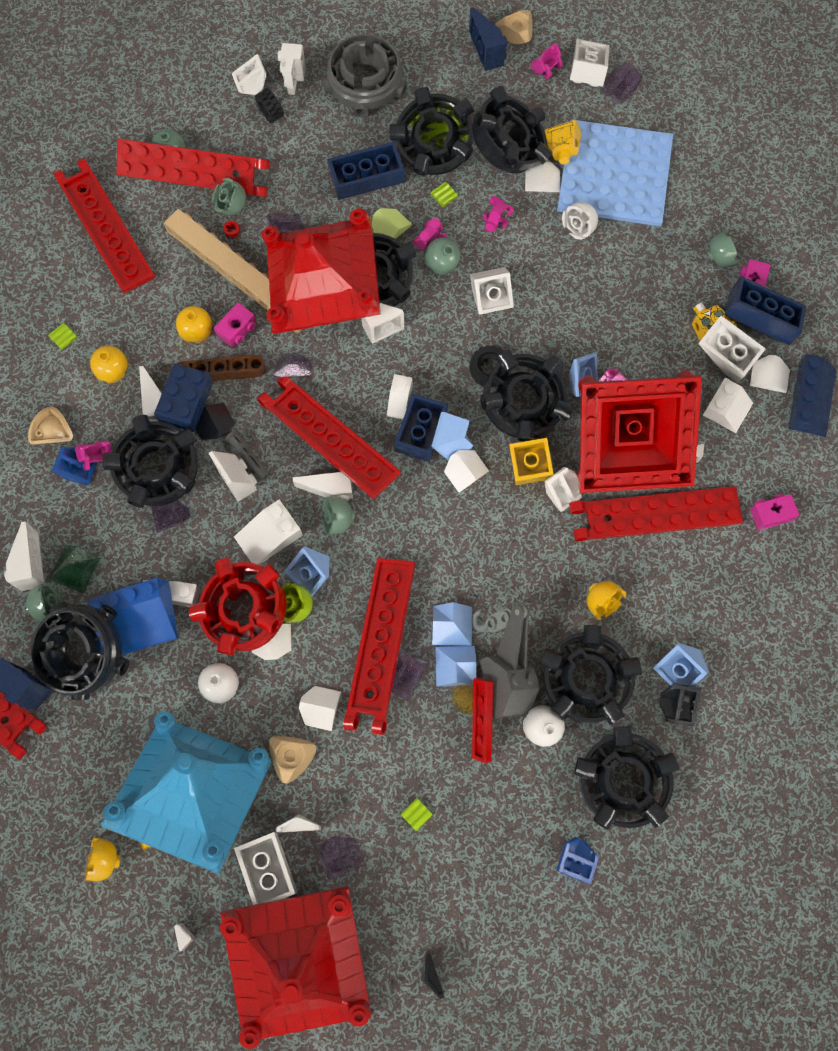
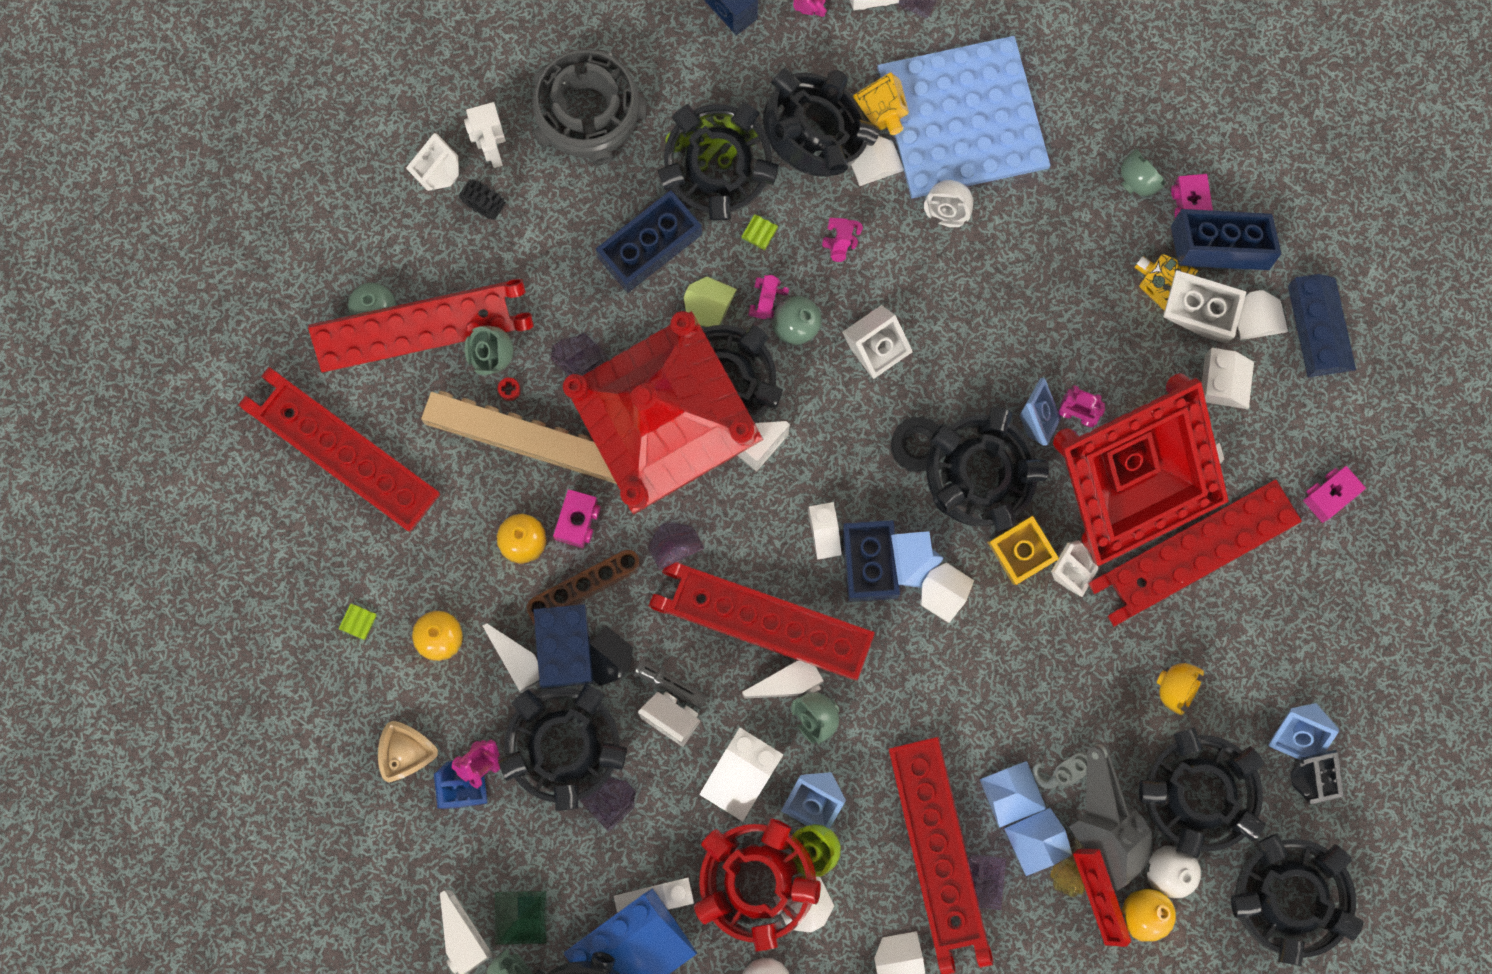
camera: 25 degrees left, 5 degrees up
(512, 748) = (1149, 915): none -> yellow cylinder

